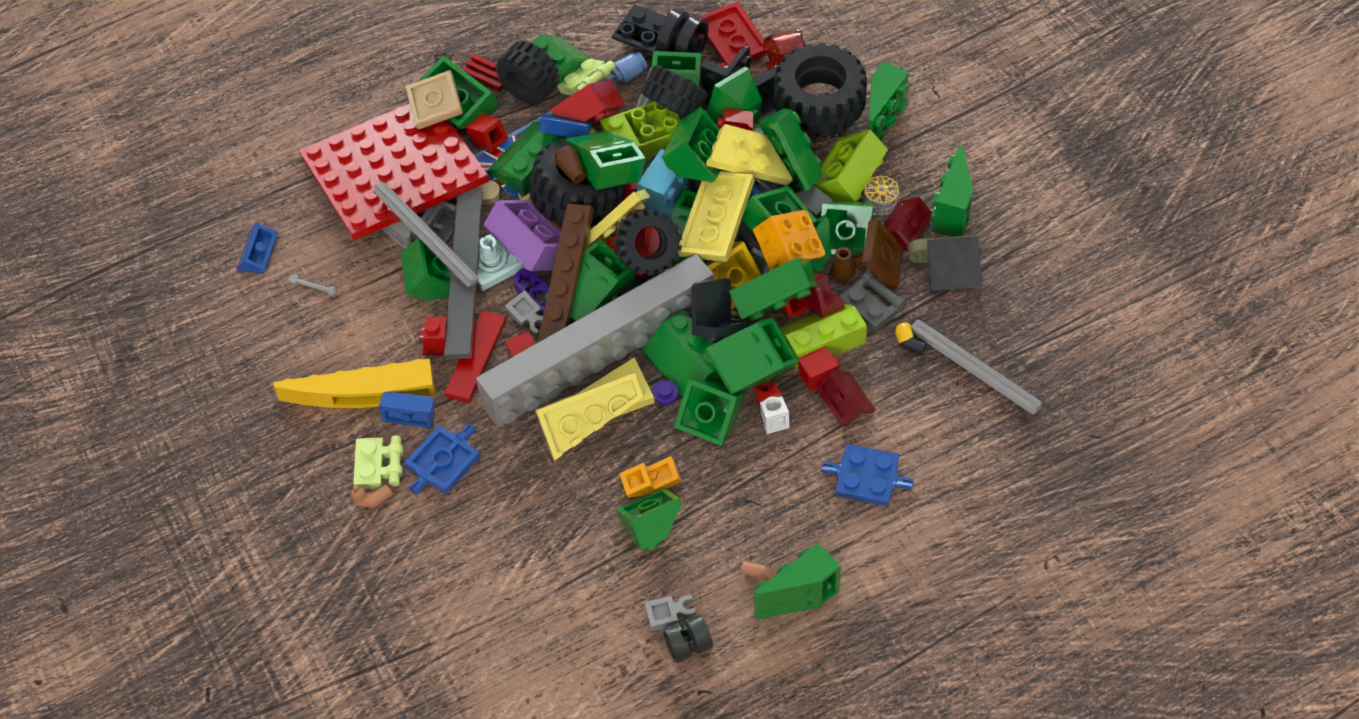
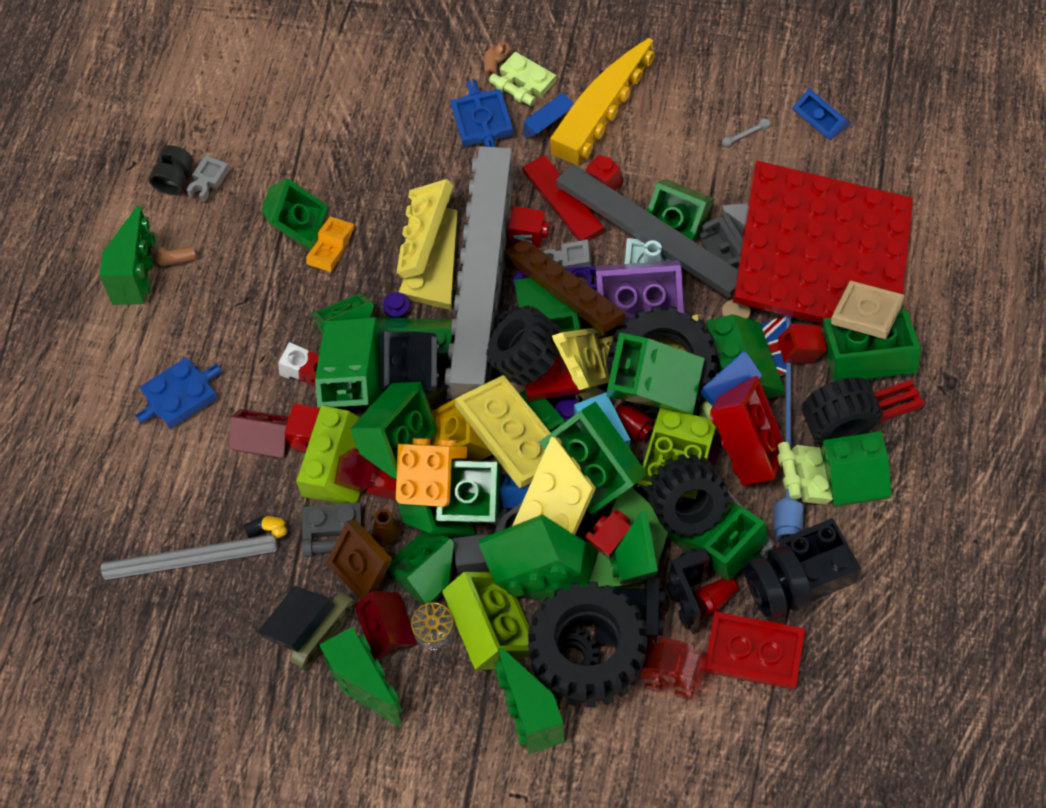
camera: 130 degrees right, 5 degrees up
(425, 234) = (703, 206): light grey axle -> none
(569, 162) = (666, 333): reddish brown cone -> none

